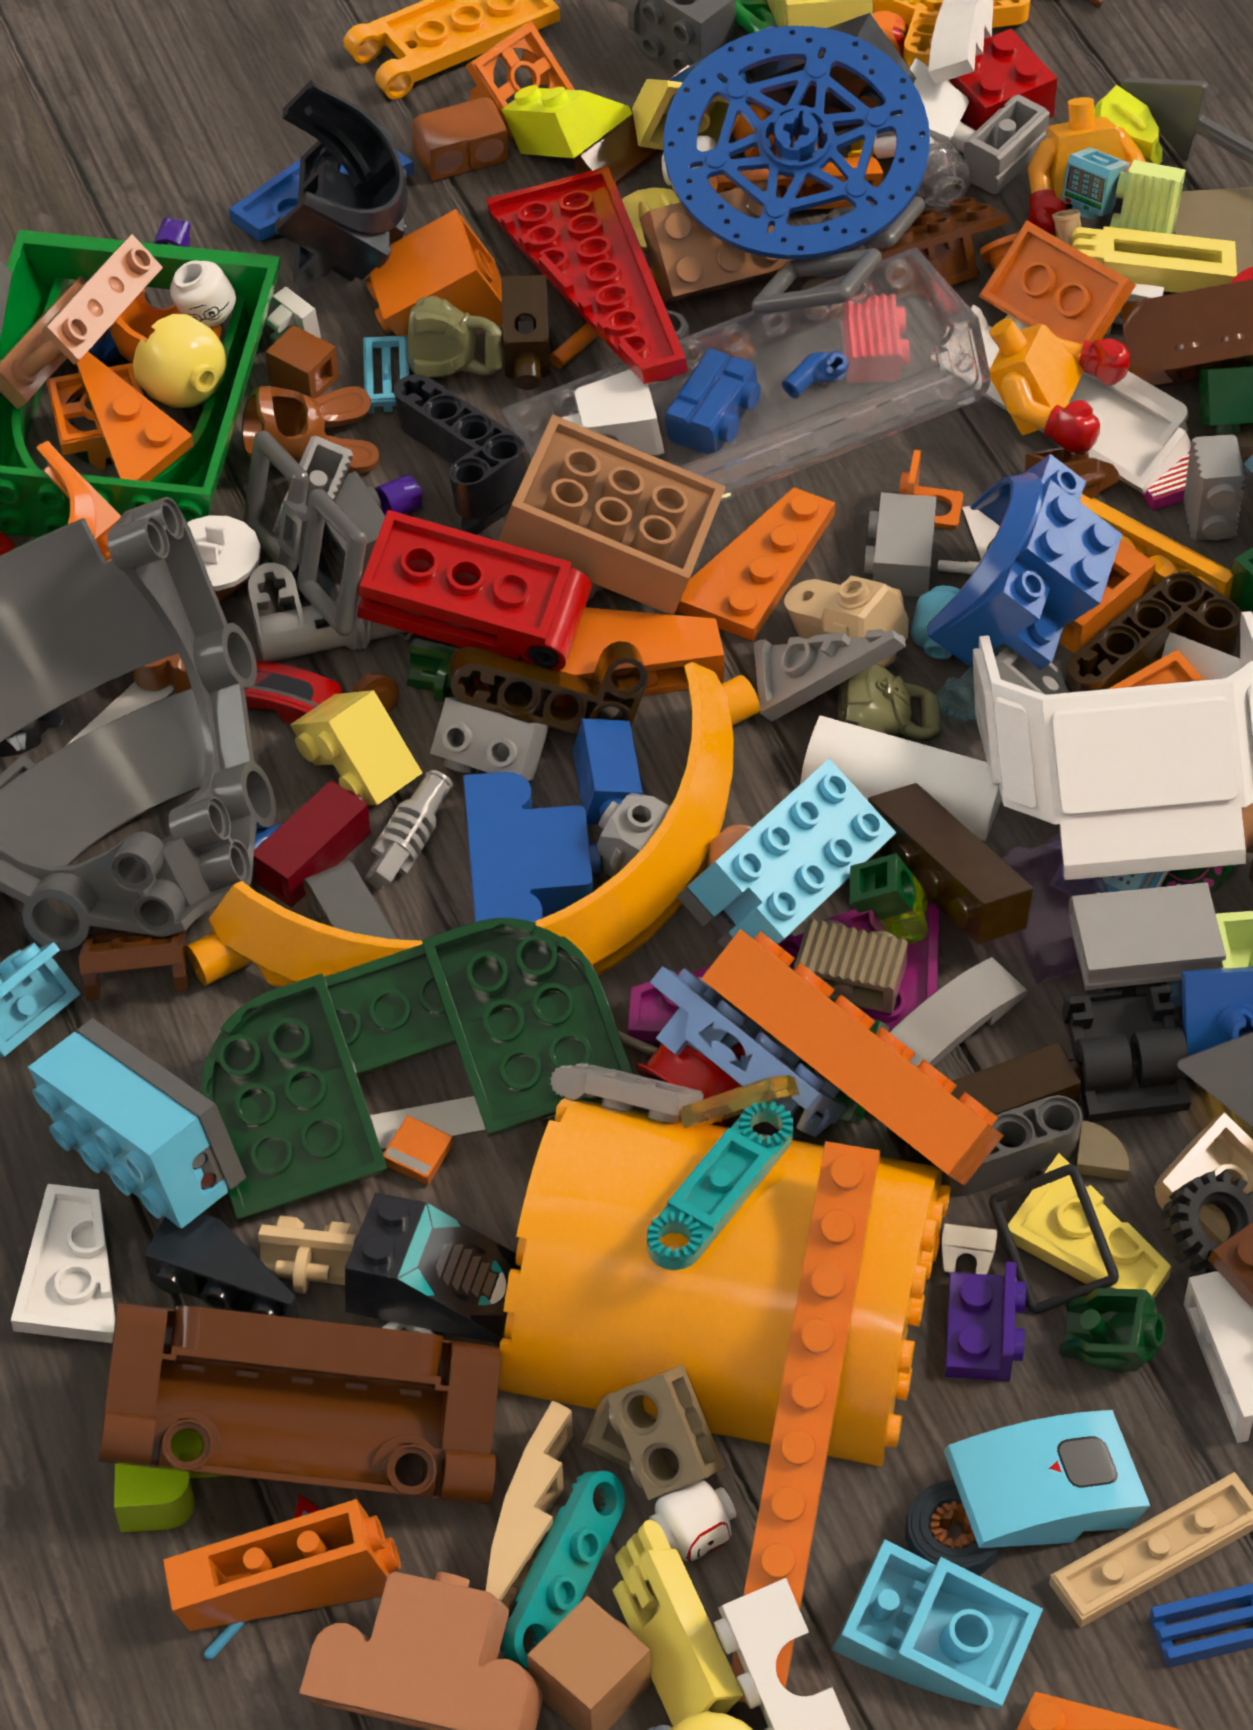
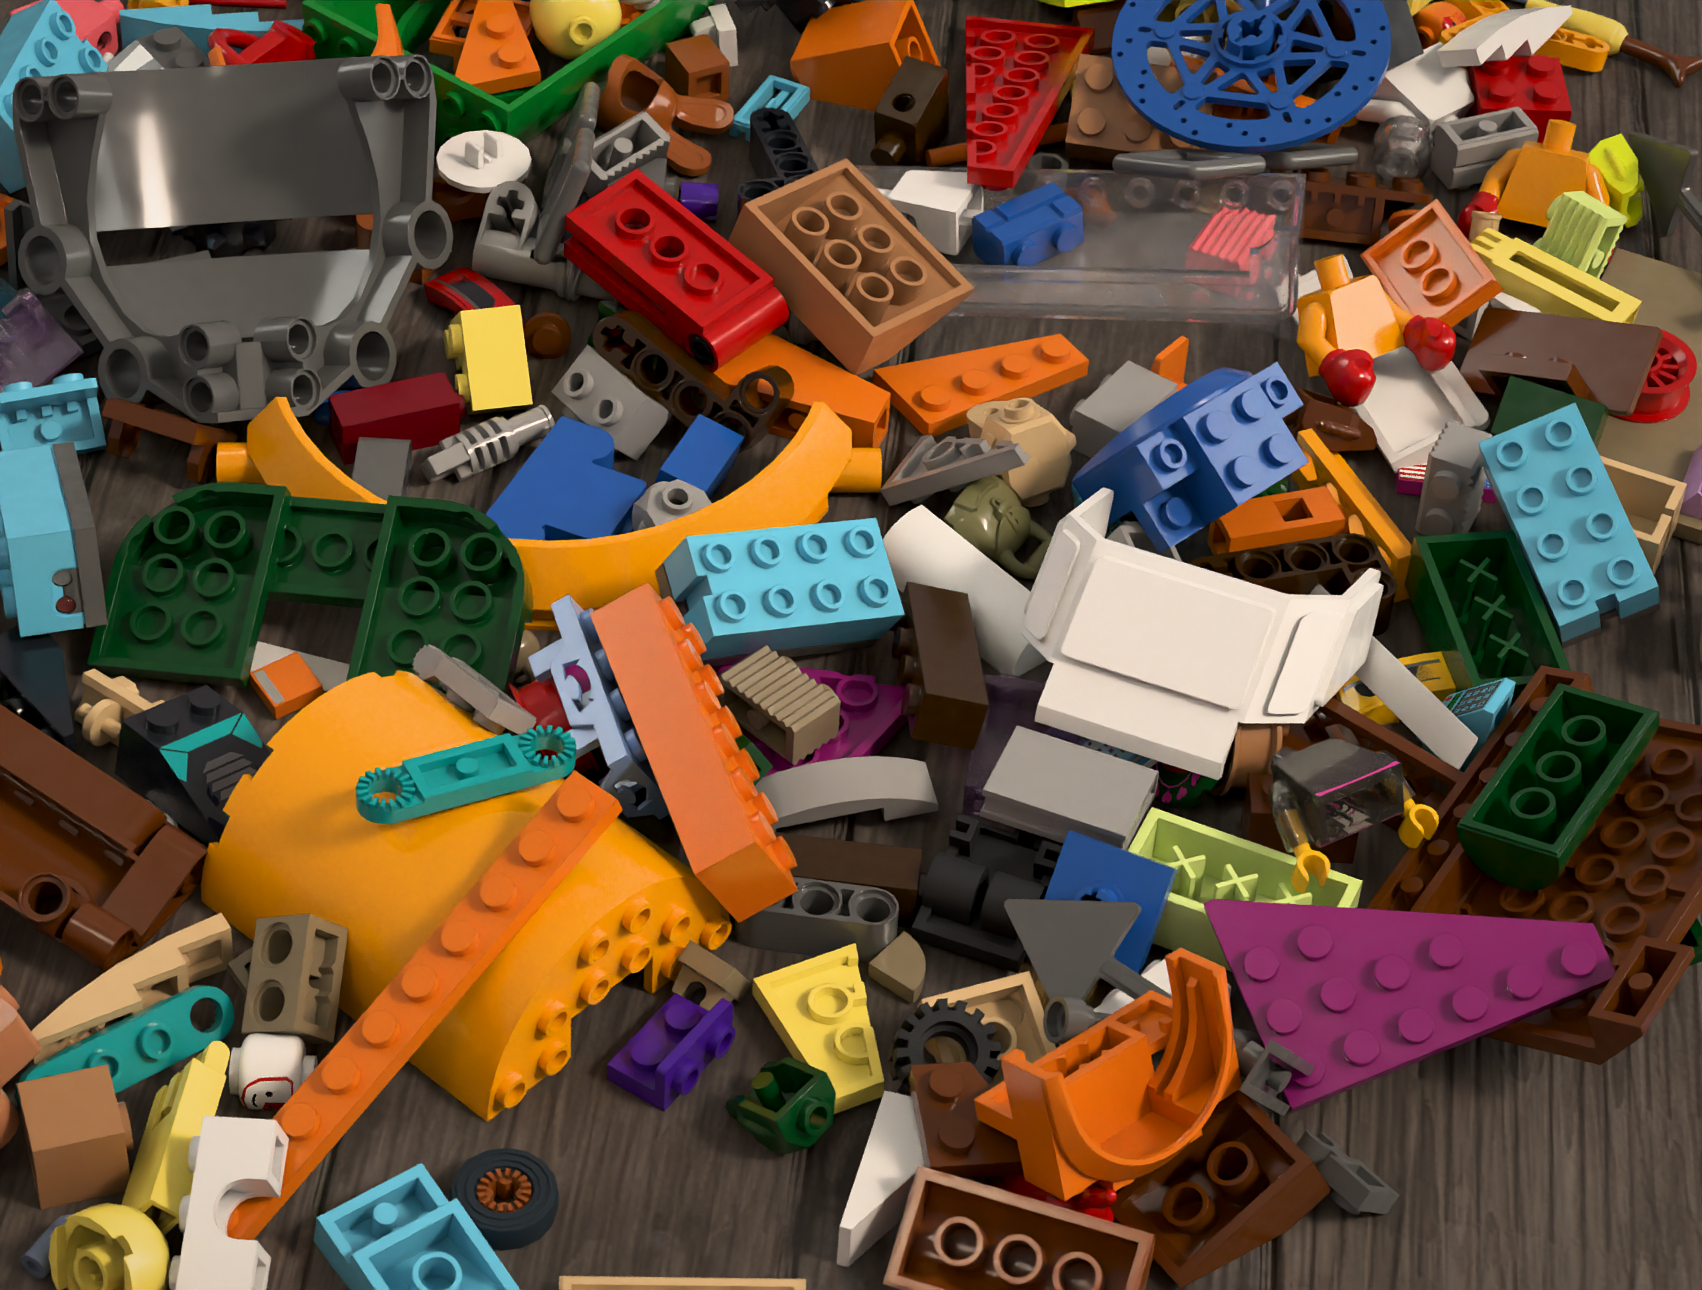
camera: 25 degrees right, 10 degrees down
(445, 340) = (829, 97): olive piece -> none
(736, 1100) = (586, 729): clear yellow tile -> none
(815, 368) = (1145, 241): blue arm -> none
(892, 894) = (855, 661): dark green leg -> none
(994, 1204) = (835, 946): black piece -> none
(1047, 1480) = (614, 1193): medium azure slope -> none
(1092, 182) = (1526, 194): medium azure slope -> none

